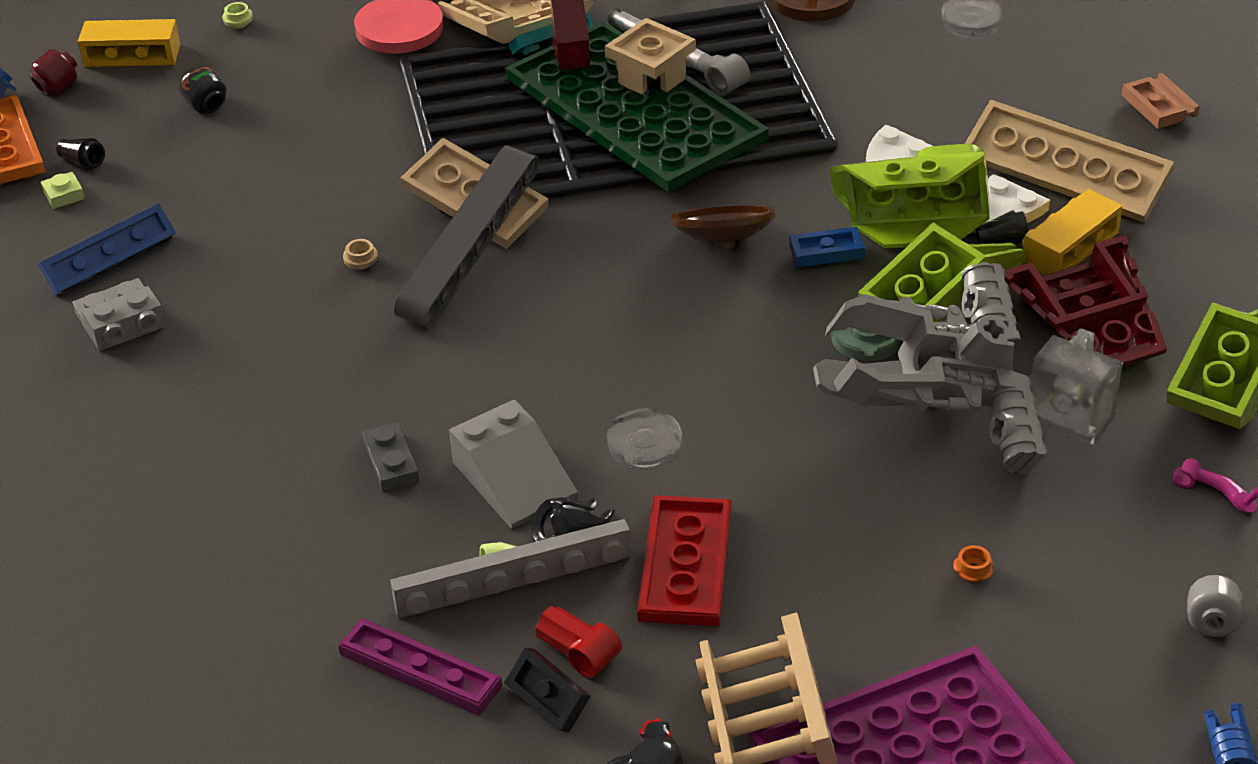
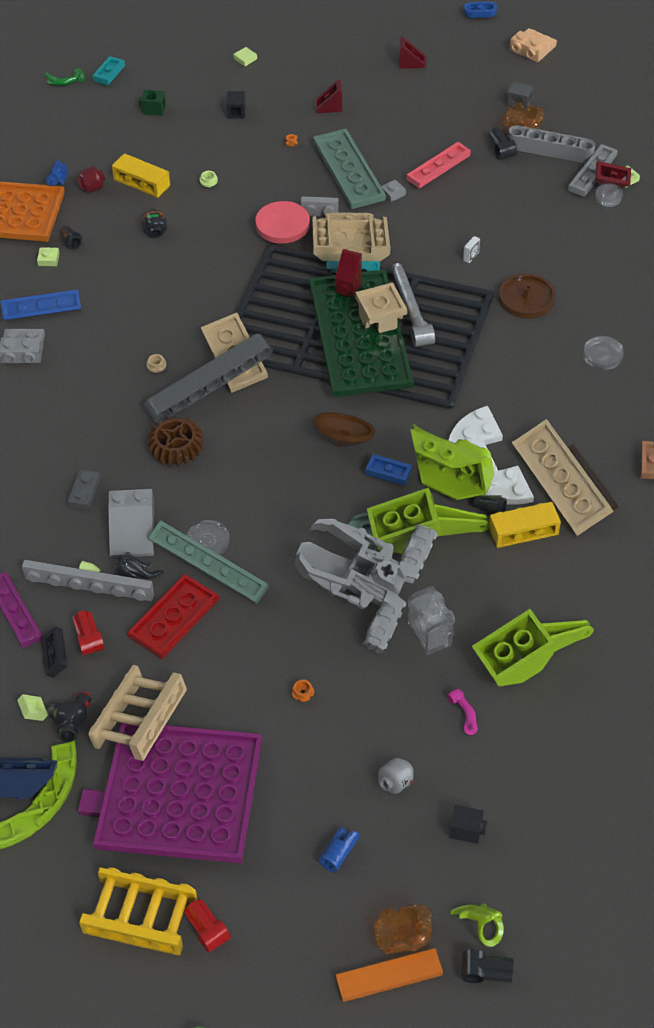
camera: 30 degrees right, 10 degrees up
(483, 335) = (174, 435): none -> reddish brown gear
(680, 461) = (208, 562): none -> sand green plate
(1097, 298) = (492, 575): dark red wedge -> none

